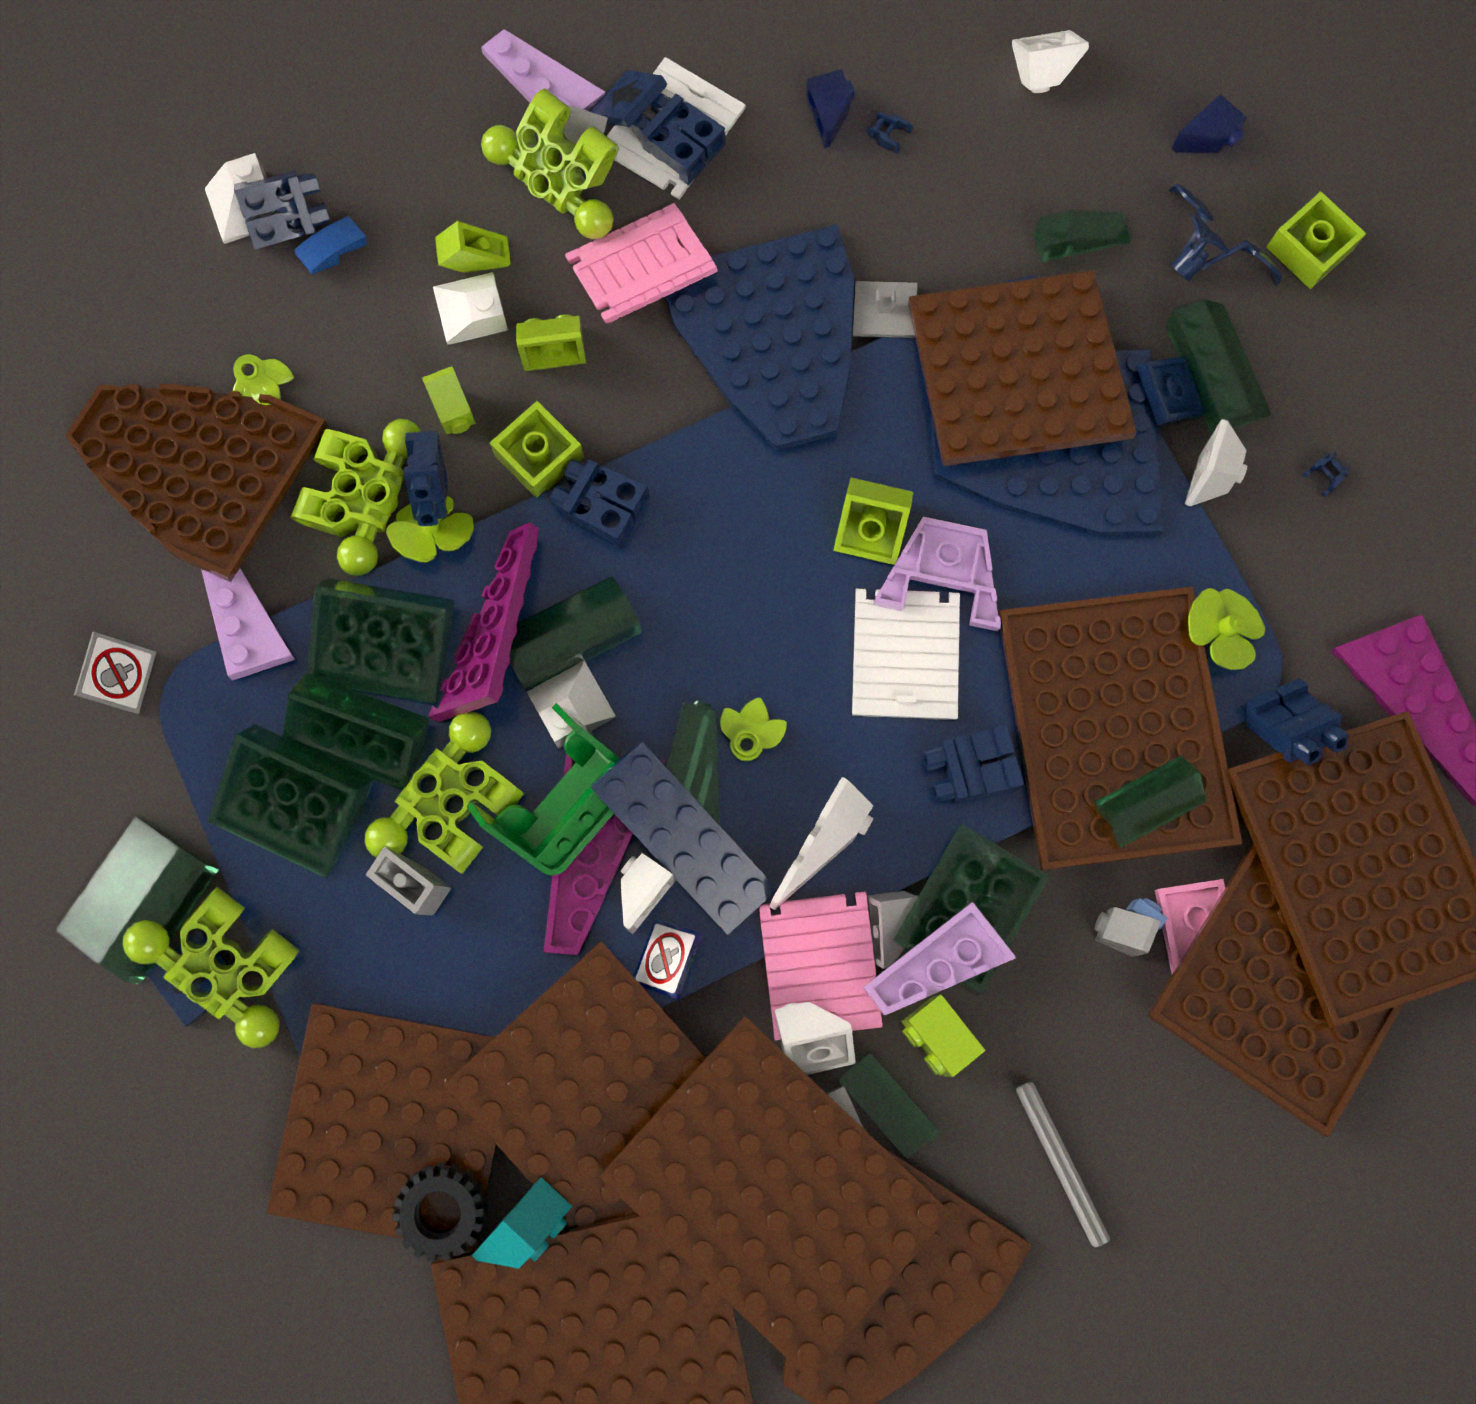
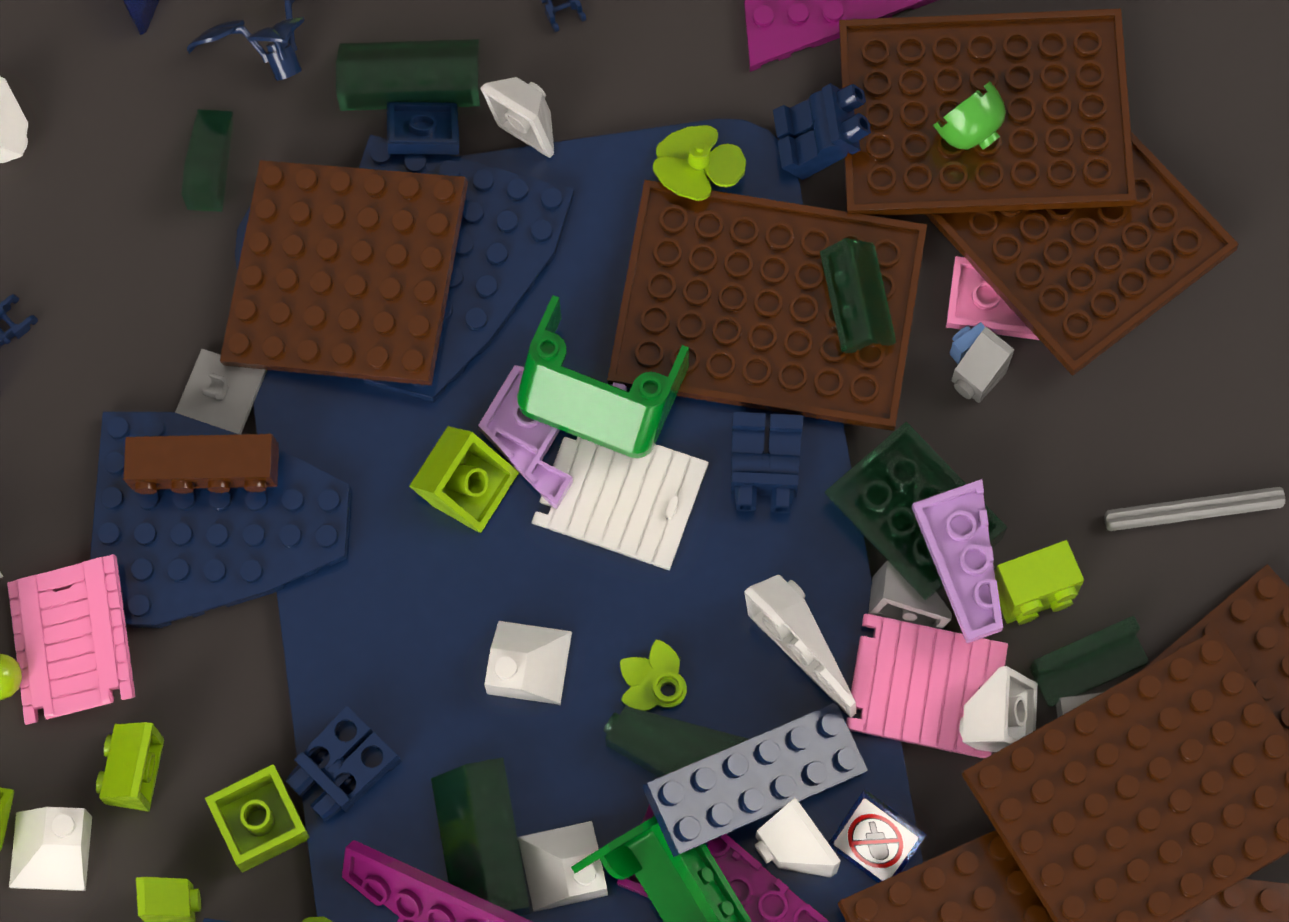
camera: 70 degrees left, 5 degrees down
(733, 621) = (528, 662): none -> white slope
(813, 305) = (201, 462): none -> reddish brown brick
(964, 634) = (592, 408): none -> windscreen
(1356, 854) = (974, 120): none -> bright green cylinder

